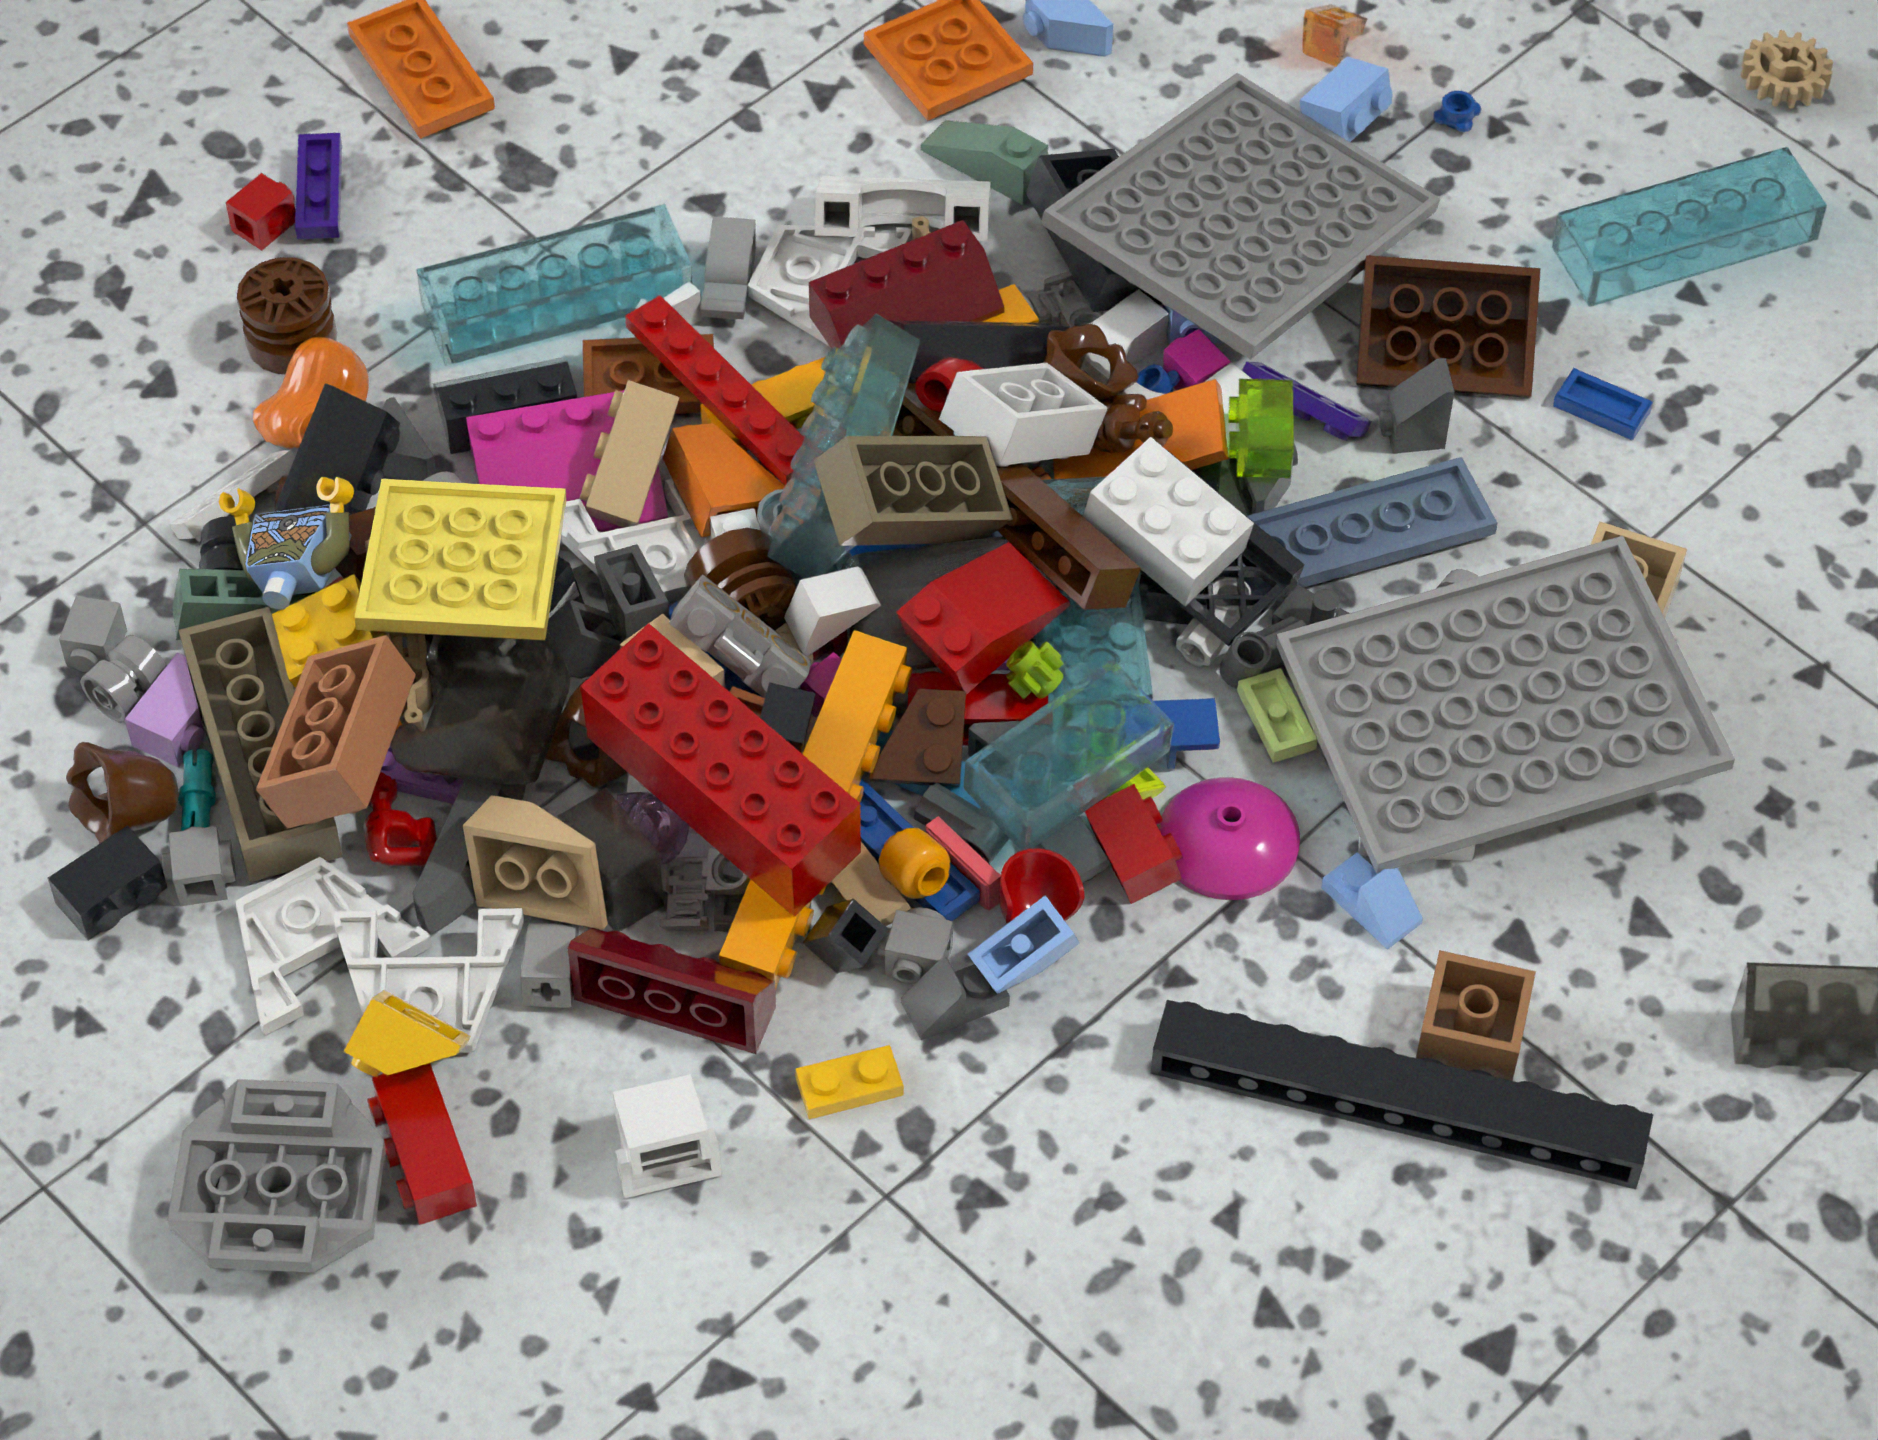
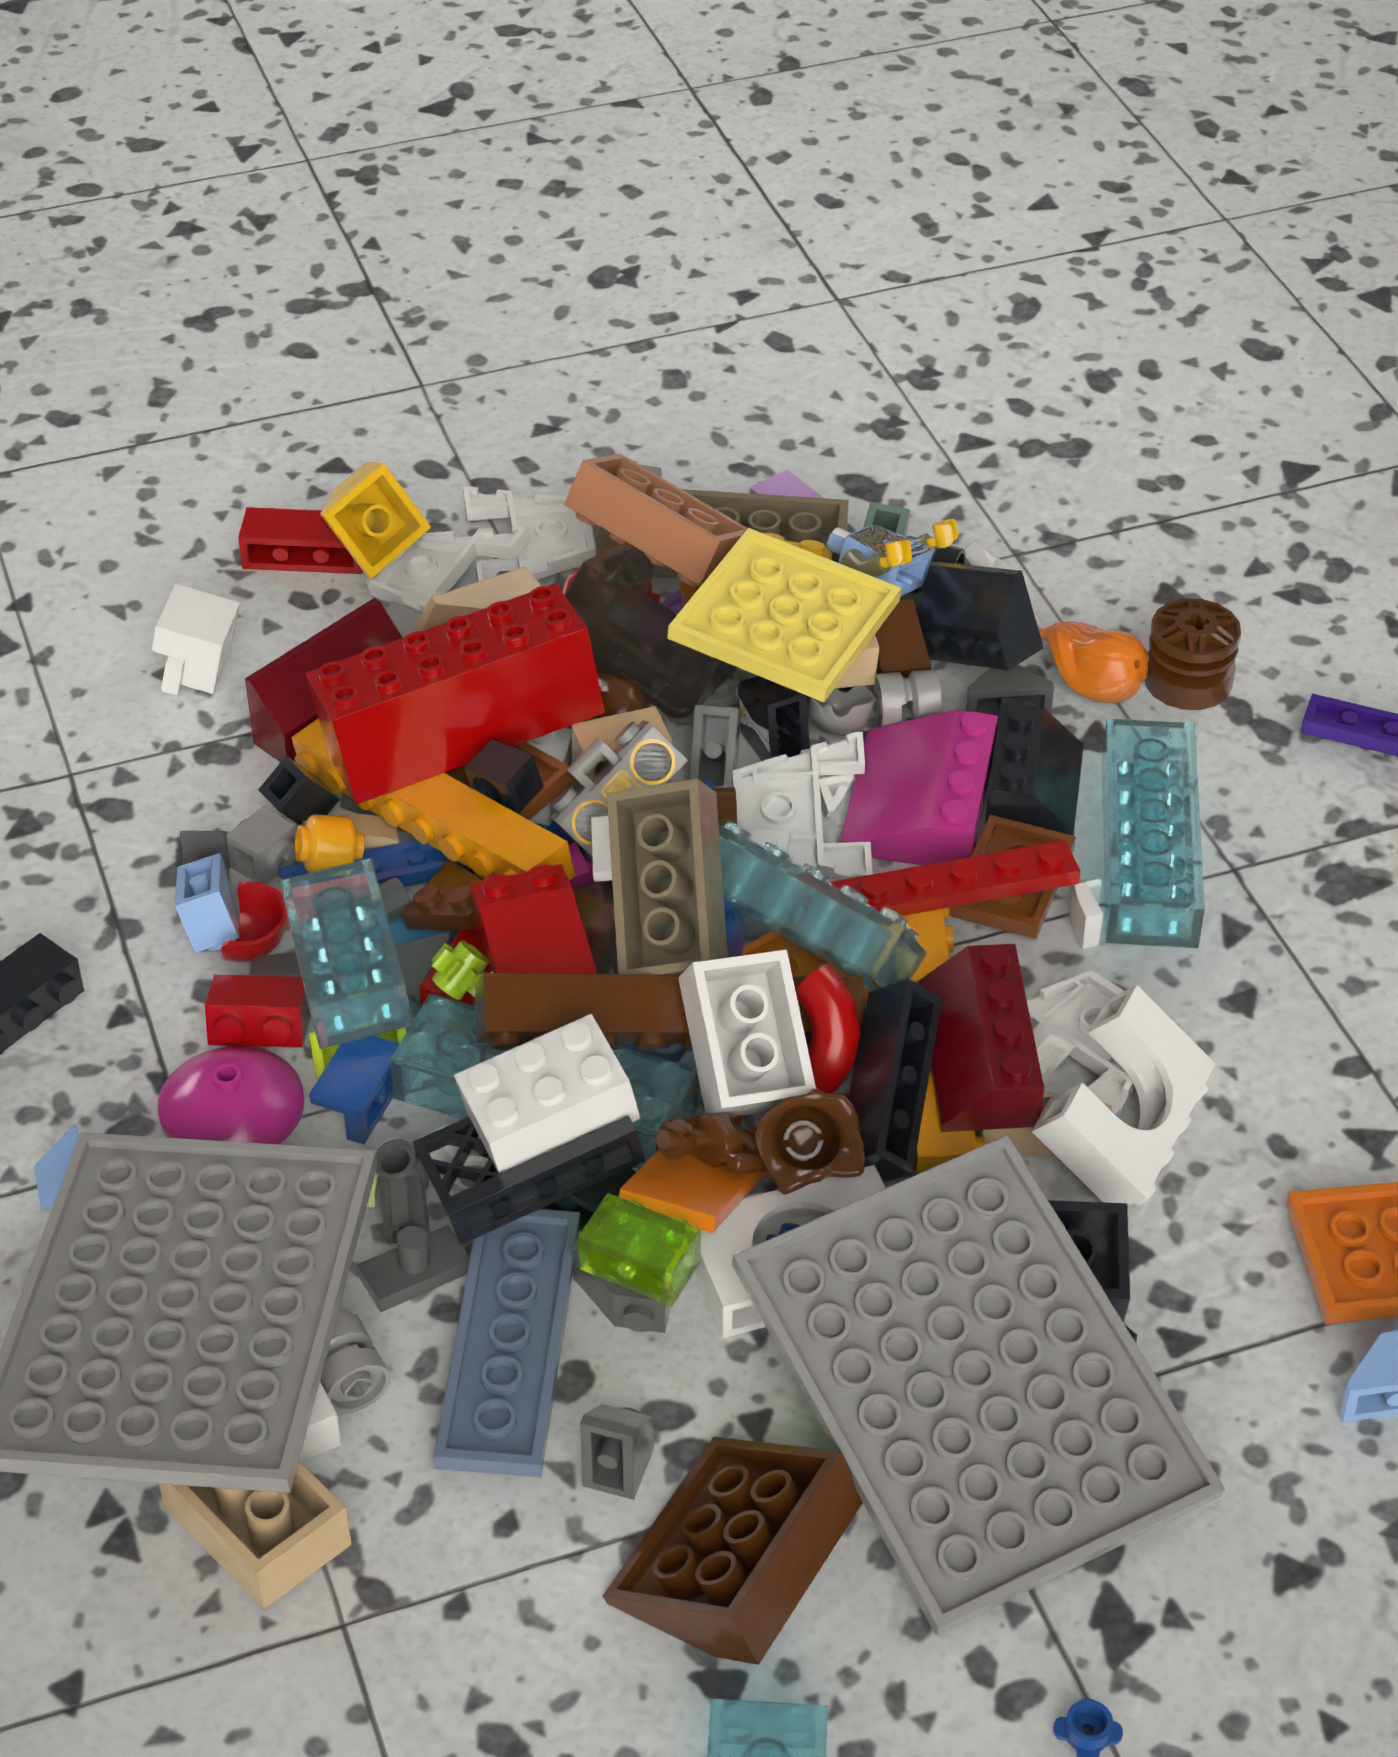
camera: 115 degrees right, 10 degrees down
(91, 632) = (897, 485): light grey brick -> none
(108, 883) = (649, 441): black brick -> none
(119, 683) = (836, 479): light grey wheel -> none
(137, 795) = (721, 454): reddish brown piece -> none
(261, 211) = (1347, 677): red brick -> none
(270, 1138) = (305, 445): light grey piece -> none
(629, 454) = (889, 799): tan brick -> none
(630, 590) = (720, 749): dark grey slope -> none
(714, 474) = (848, 849): orange slope -> none
(728, 267) = (1127, 964): light grey piece -> none
(849, 1082) = (180, 779): yellow plate -> none
(988, 154) = (1196, 1228): sand green slope -> none
(1307, 403) = (701, 1364): dark purple plate -> none
(1328, 32) = (1274, 1625): clear orange slope -> none
(1349, 97) = (1137, 1591): light blue brick -> none
(1603, 404) = (551, 1664): blue tile -> none

